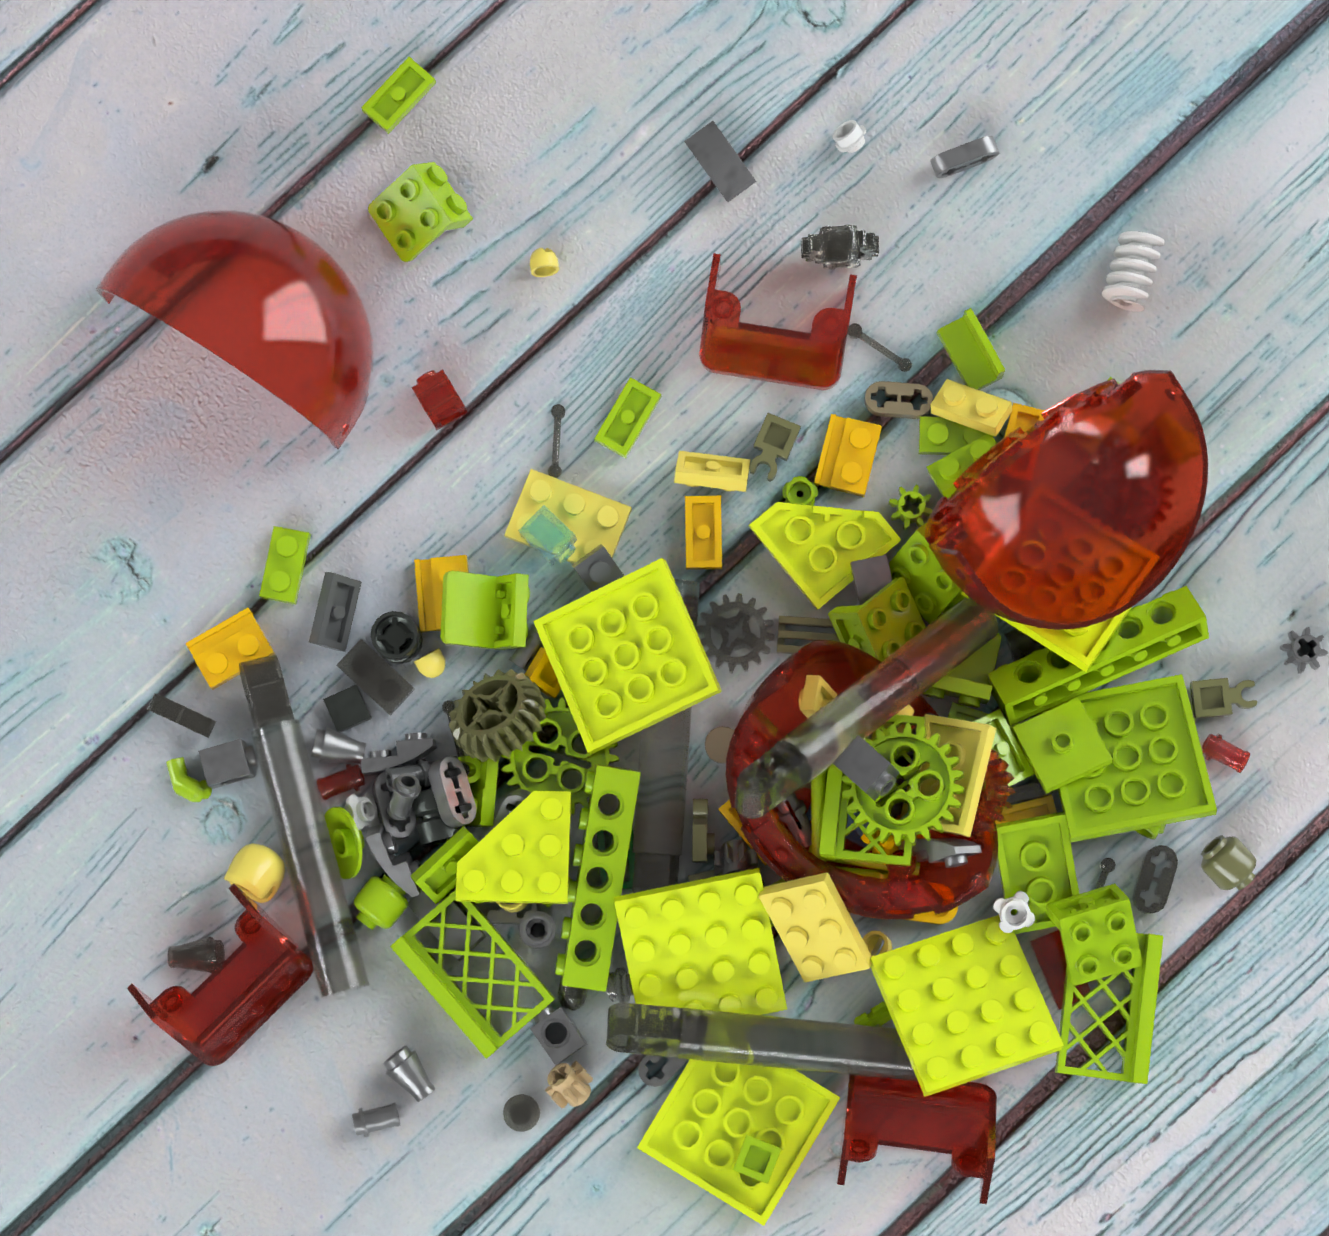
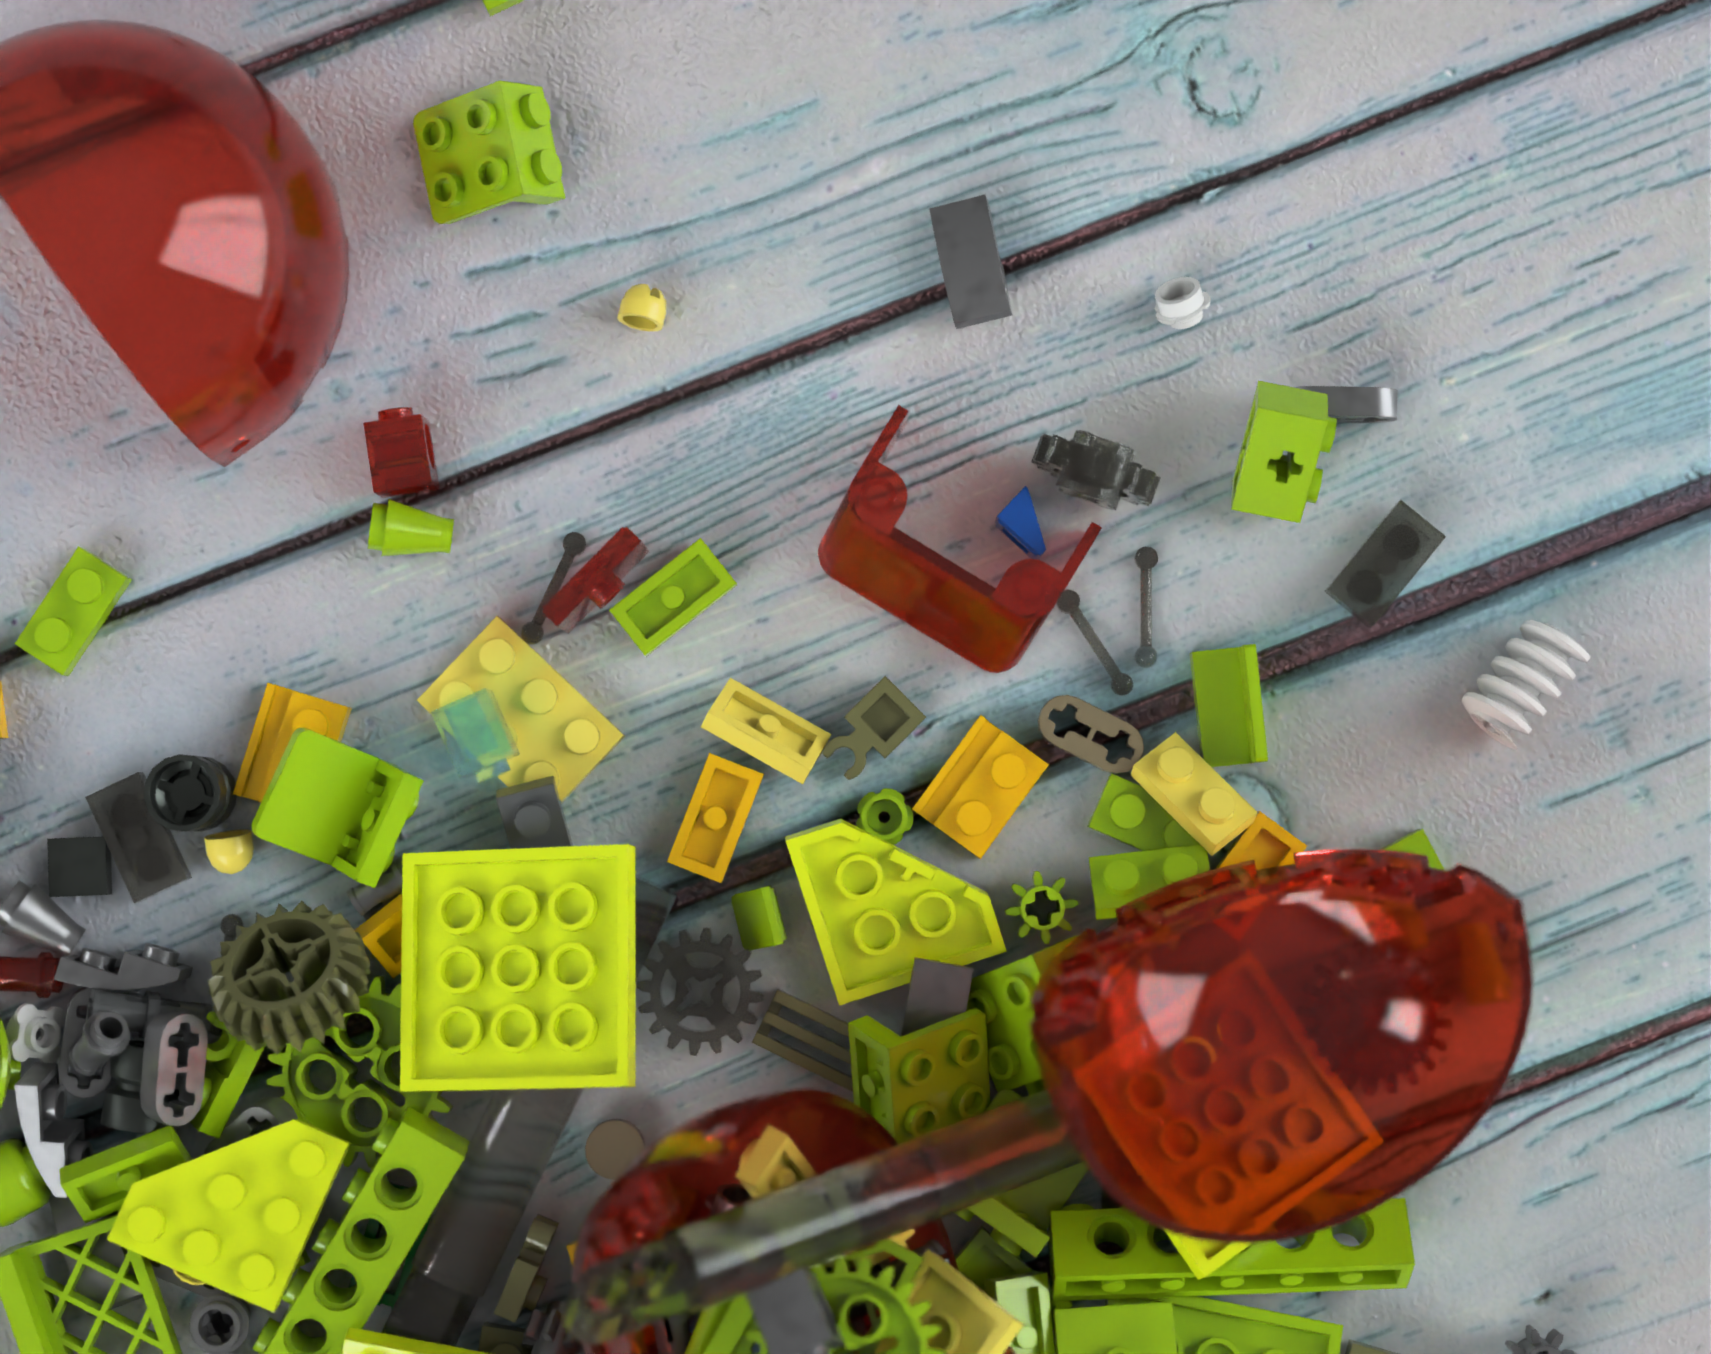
camera: 15 degrees right, 5 degrees up
(335, 611) = (116, 715): dark grey plate -> none
(459, 441) = (407, 530): none -> lime cone
(582, 422) = (596, 581): none -> clear red plate
(751, 579) = (759, 918): none -> lime slope
(809, 296) = (1021, 525): none -> blue slope
(889, 290) = (1145, 560): none -> clear smoke hinge
(937, 215) = (1278, 422): none -> lime brick
(1026, 236) = (1385, 563): none -> clear smoke plate

